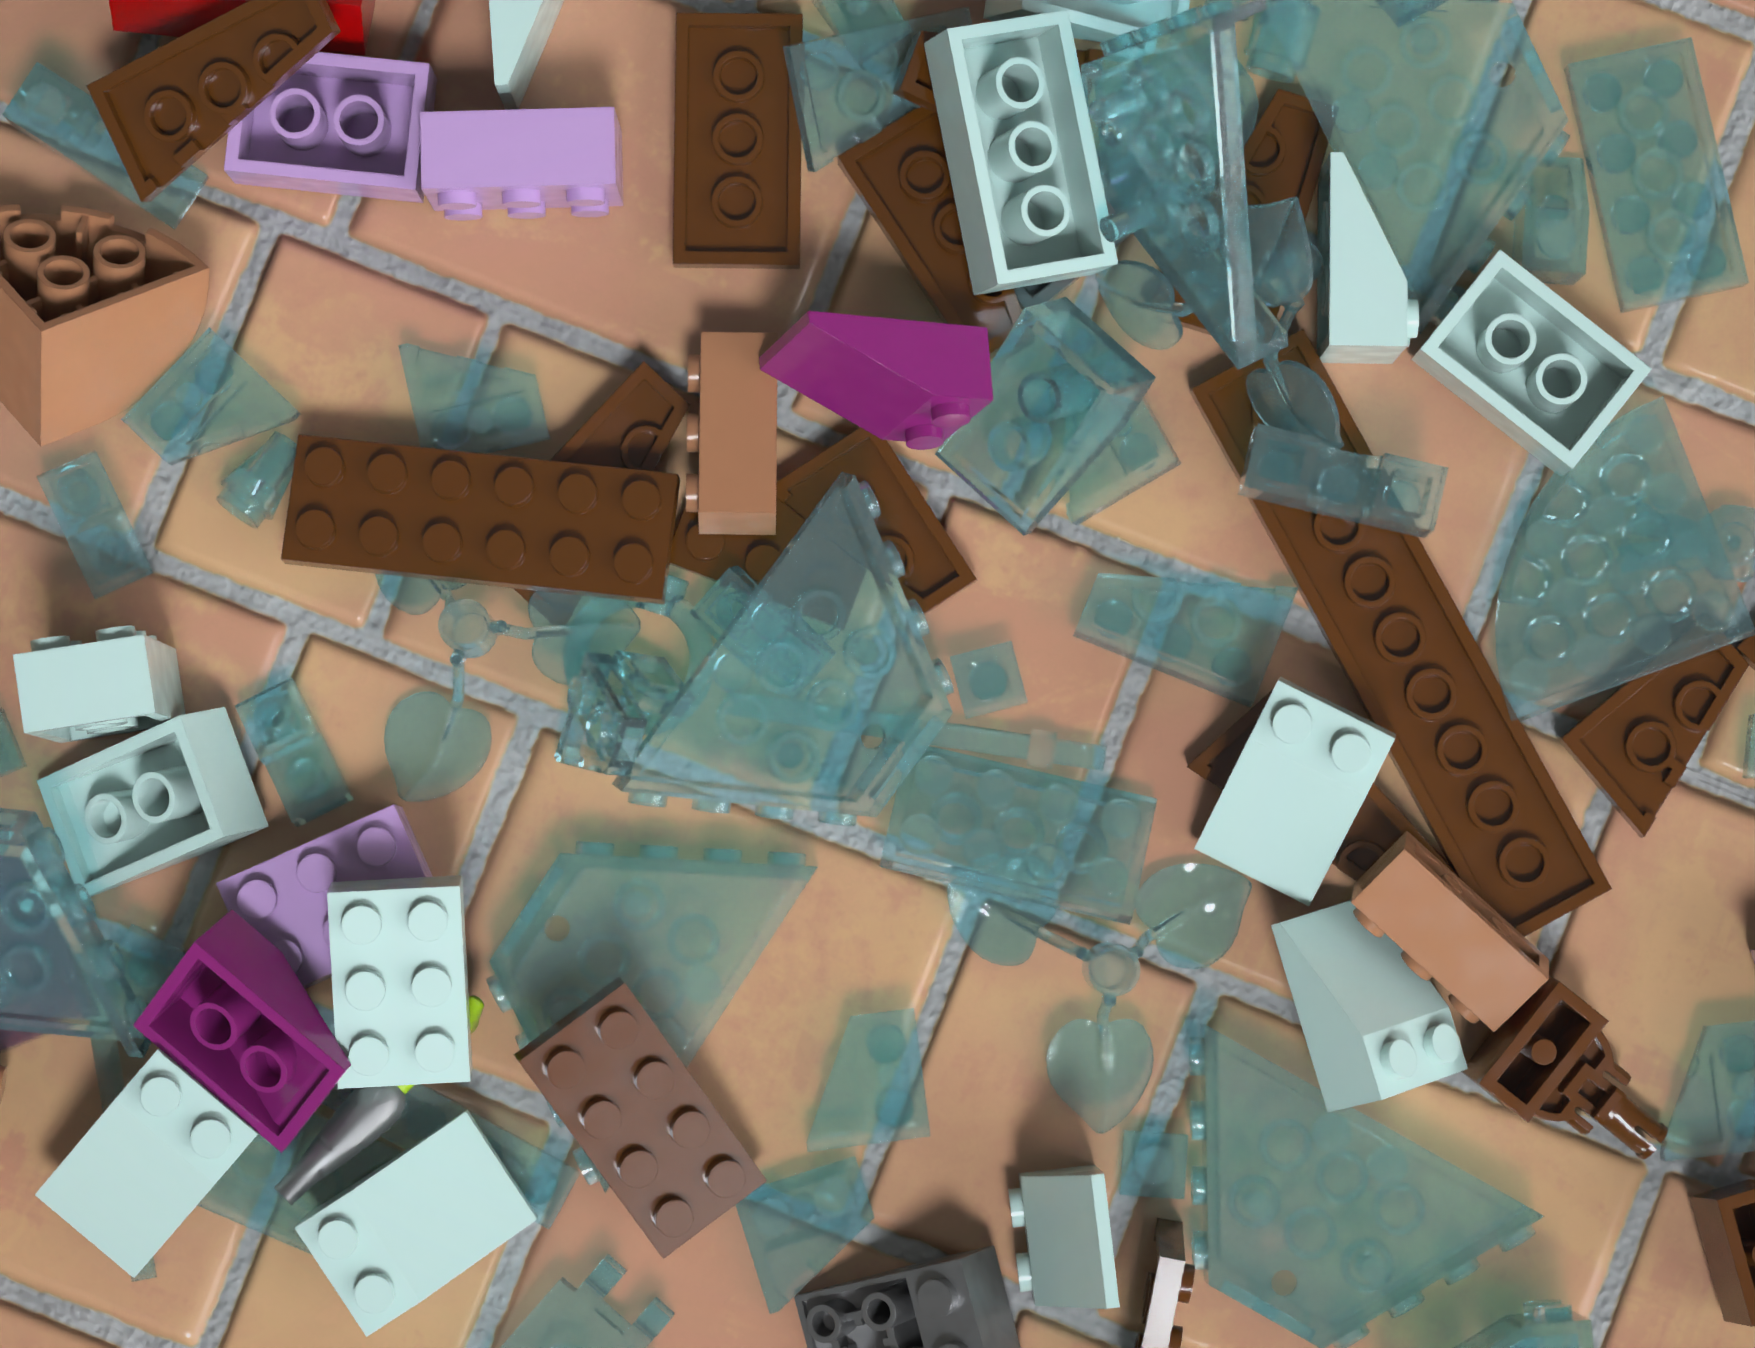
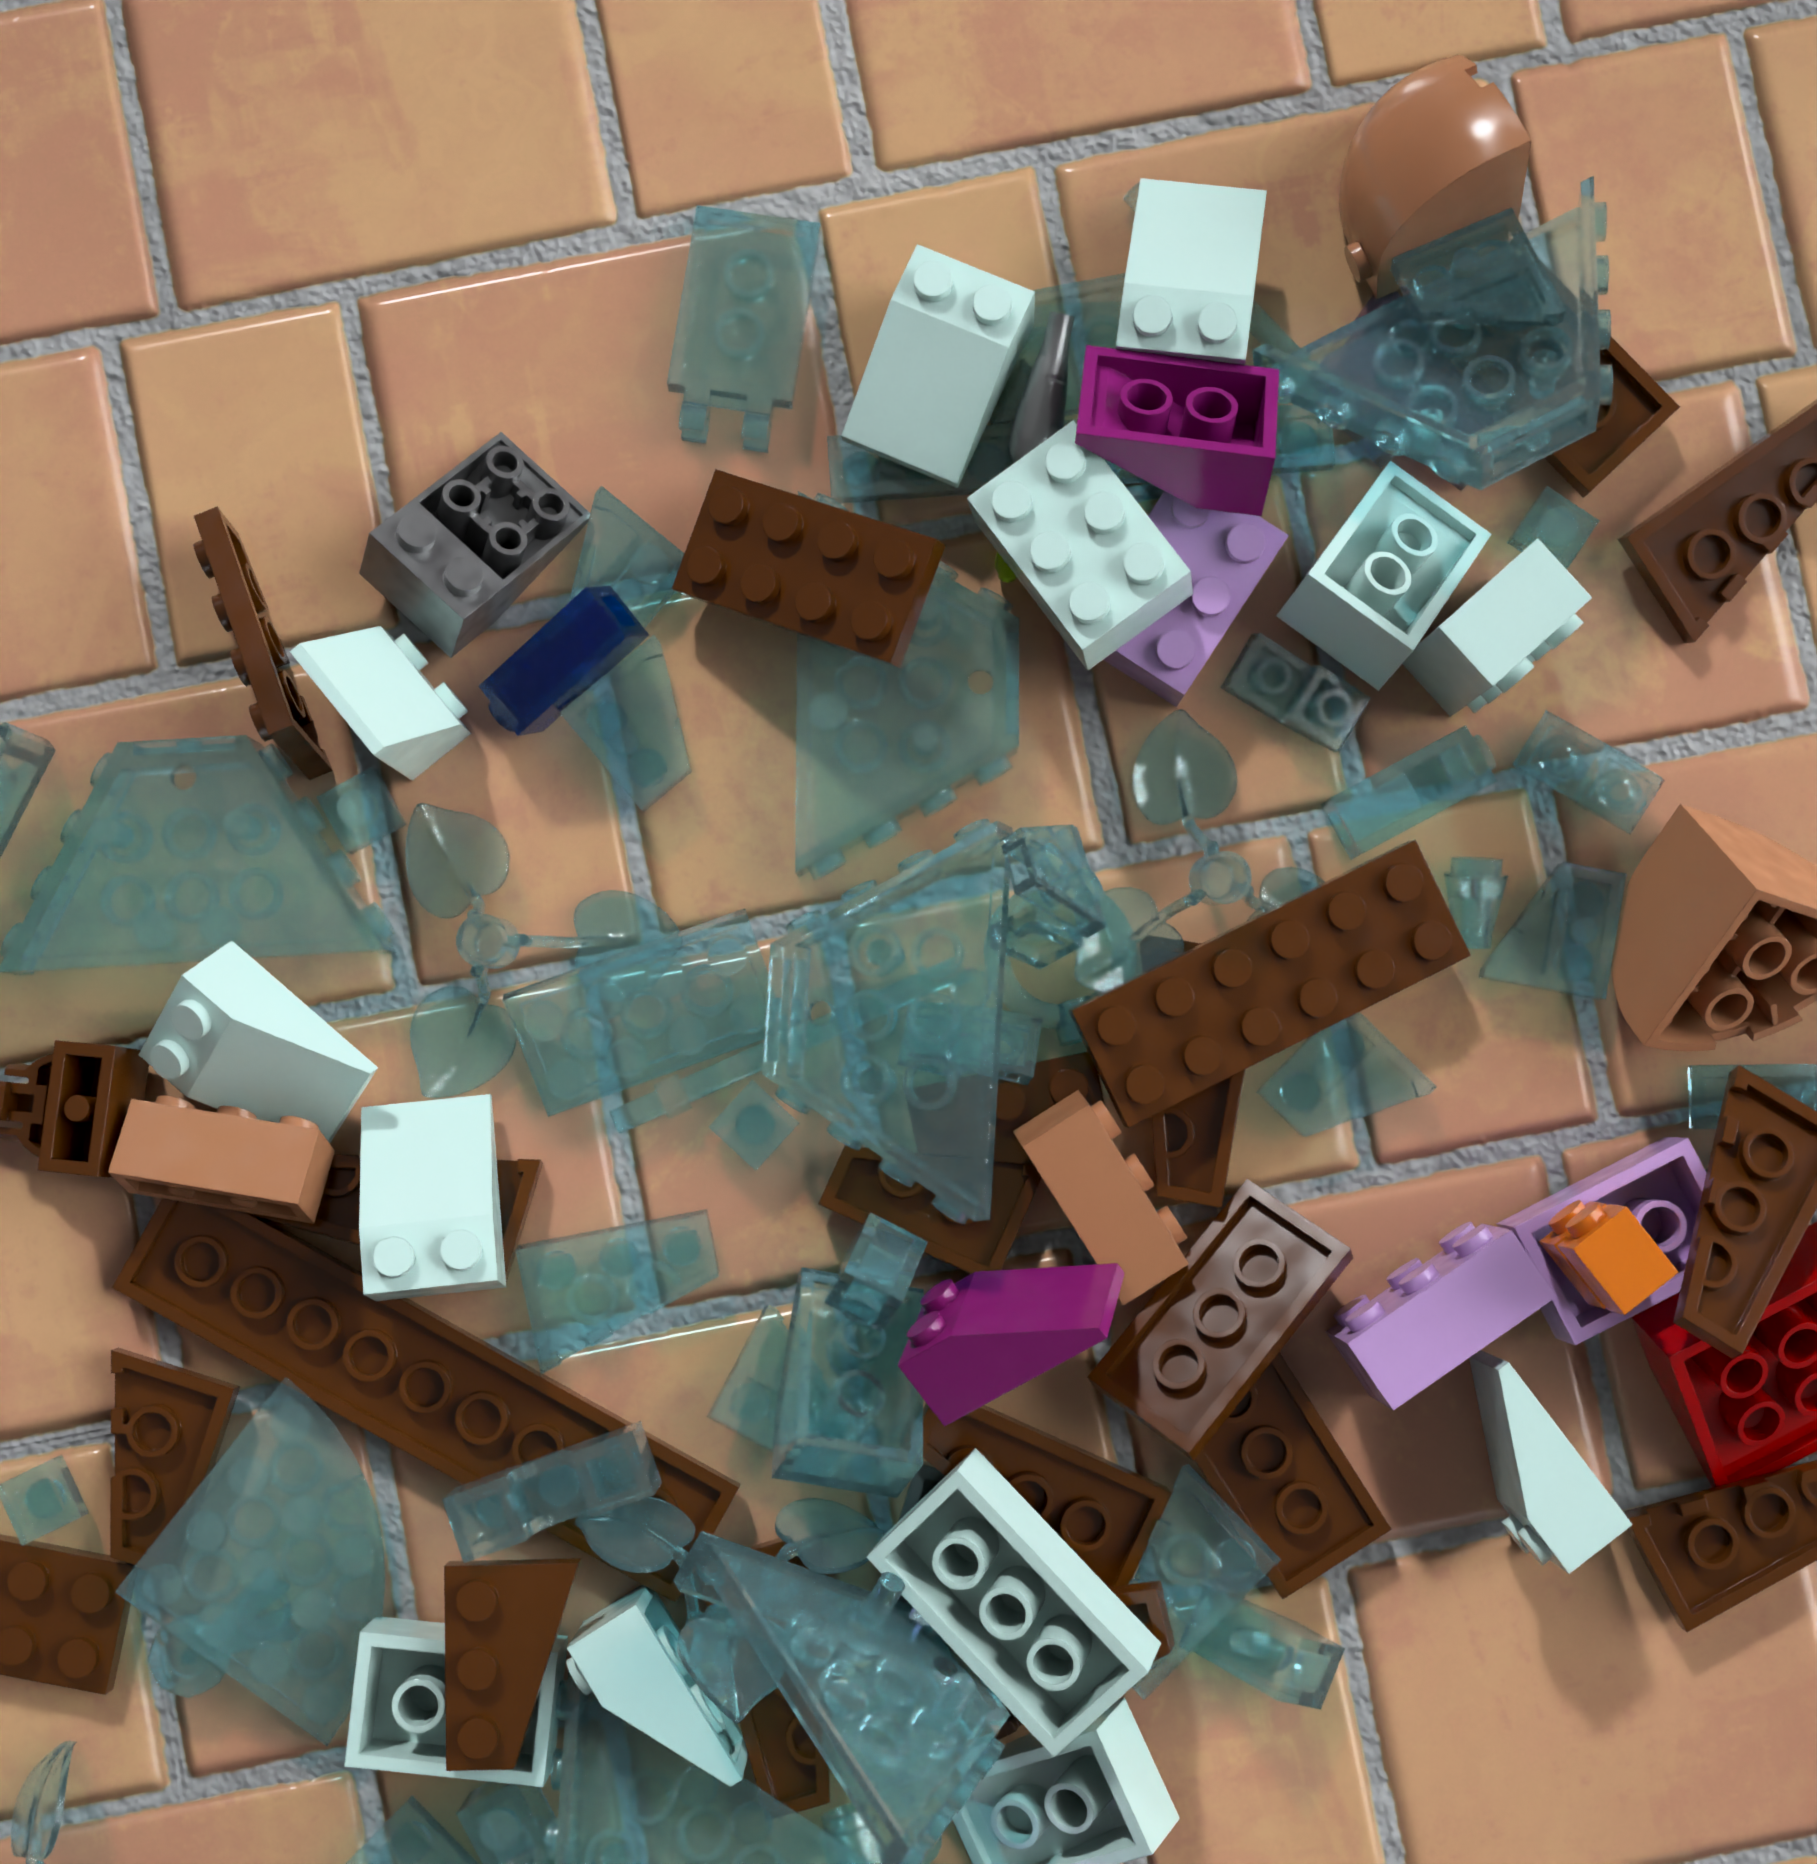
camera: 145 degrees right, 0 degrees up
(254, 604) = (1410, 791): none -> clear light blue brick
(360, 119) = (1607, 1255): none -> orange piece
(703, 271) = (1220, 1318): none -> reddish brown plate
(899, 1175) = (562, 660): none -> clear blue brick
(964, 490) = (876, 1273): none -> clear light blue brick
(1467, 379) = (496, 1653): none -> reddish brown wing

